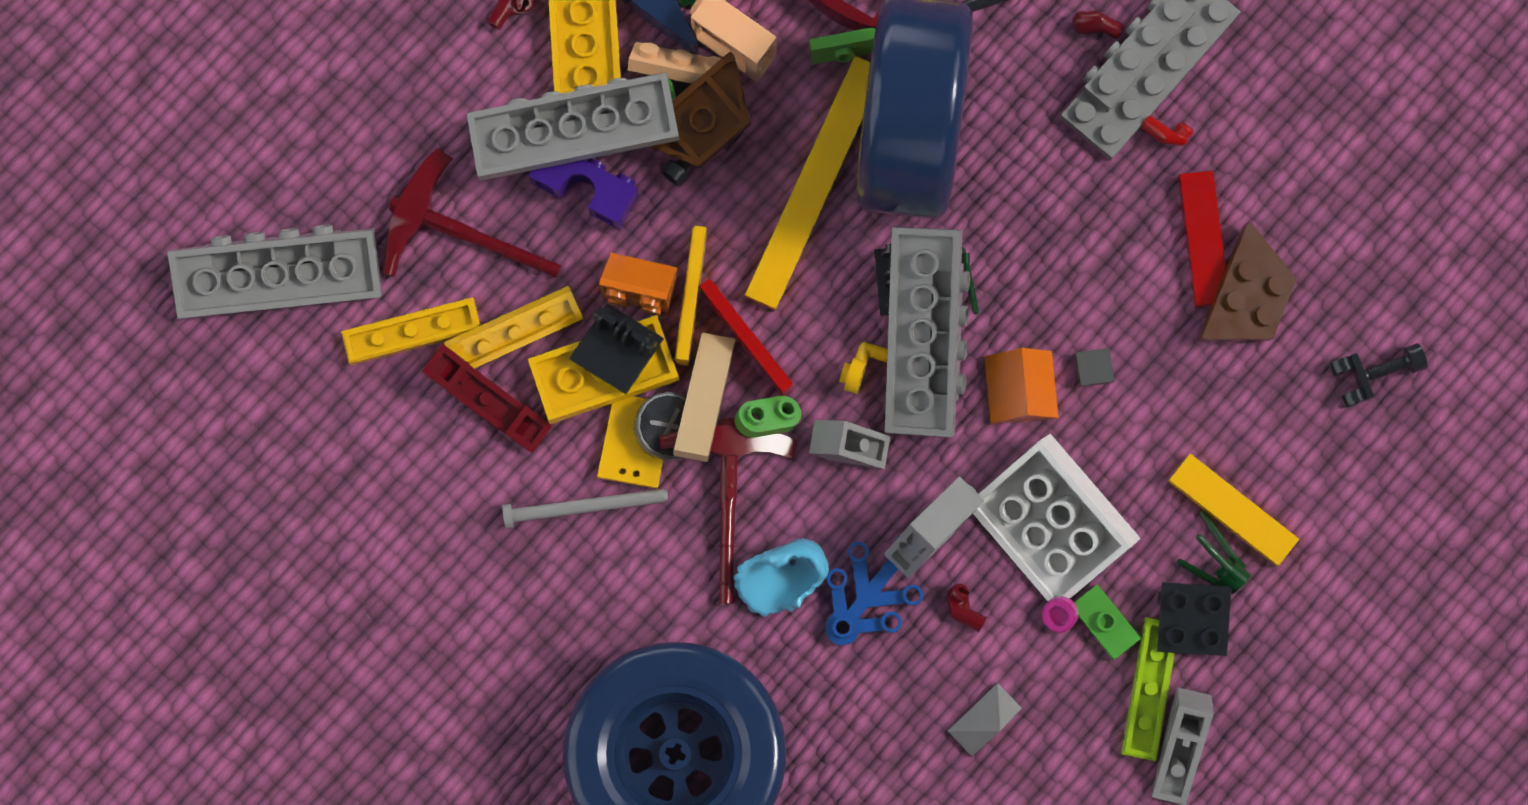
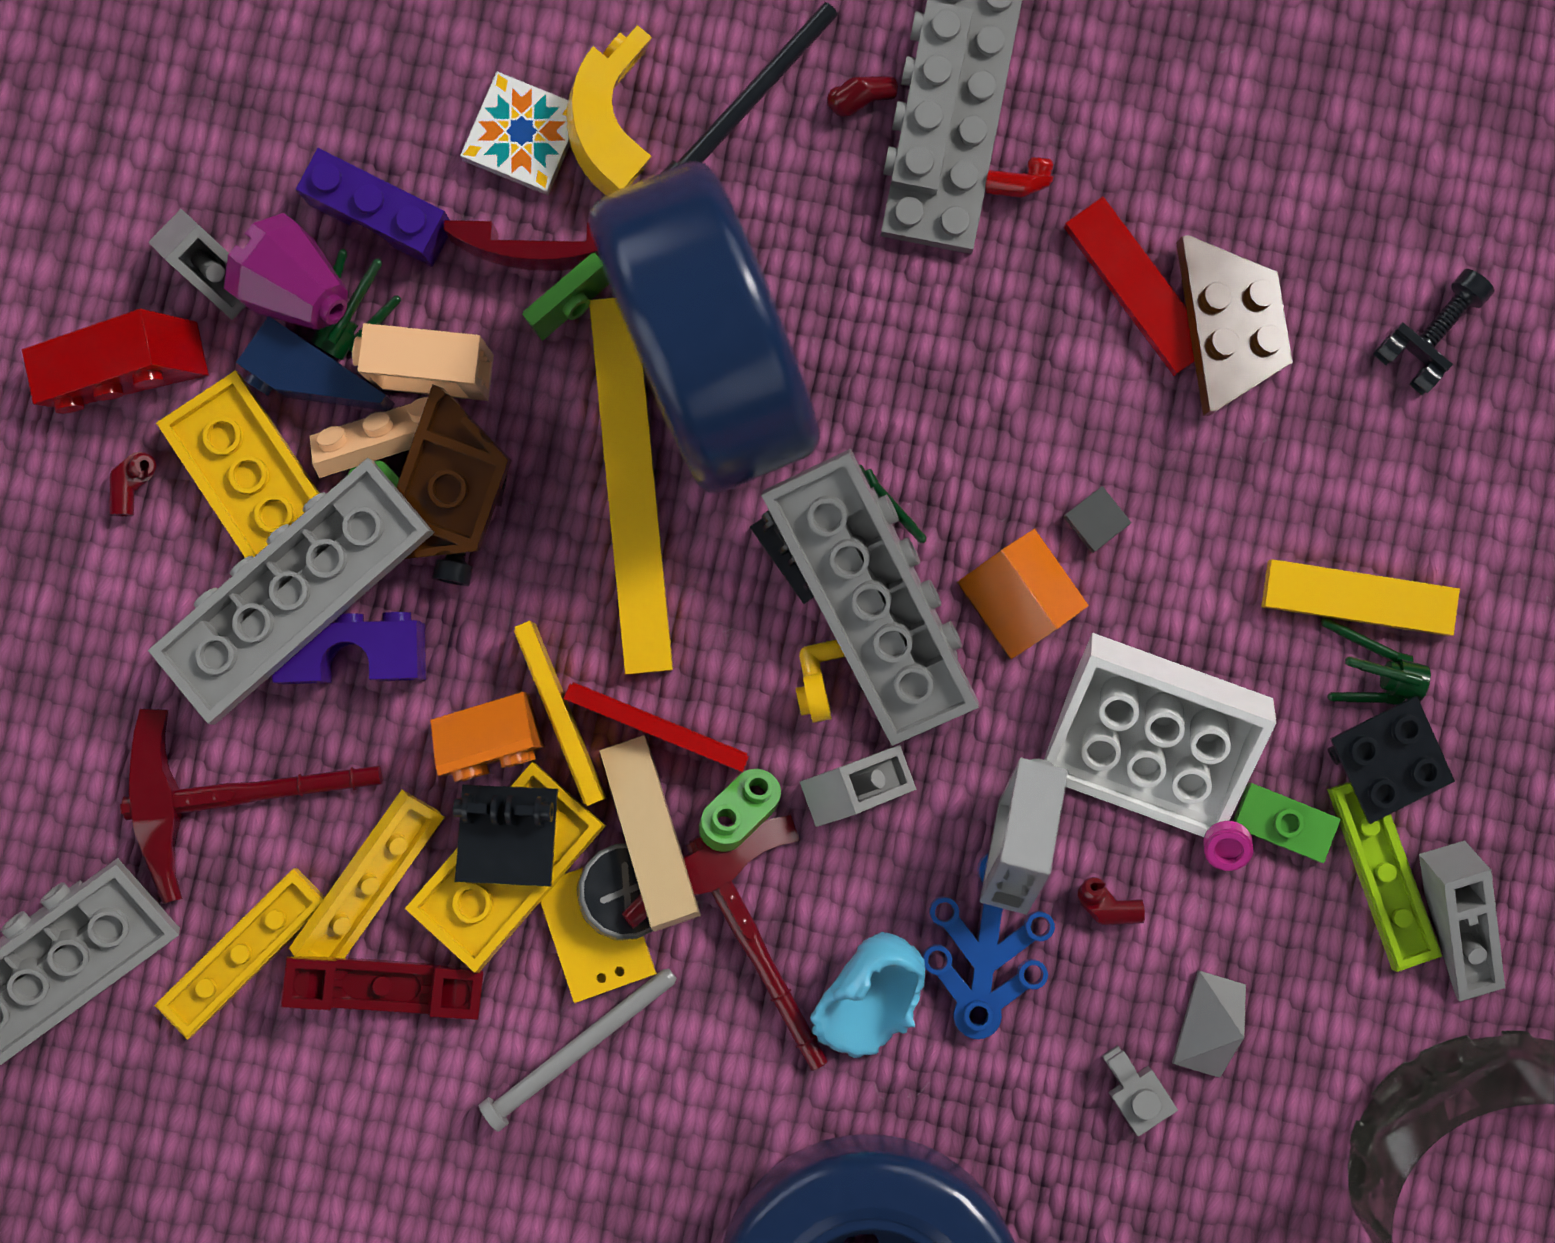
camera: 30 degrees left, 5 degrees up
(915, 738) = (1139, 1095): none -> light grey plate

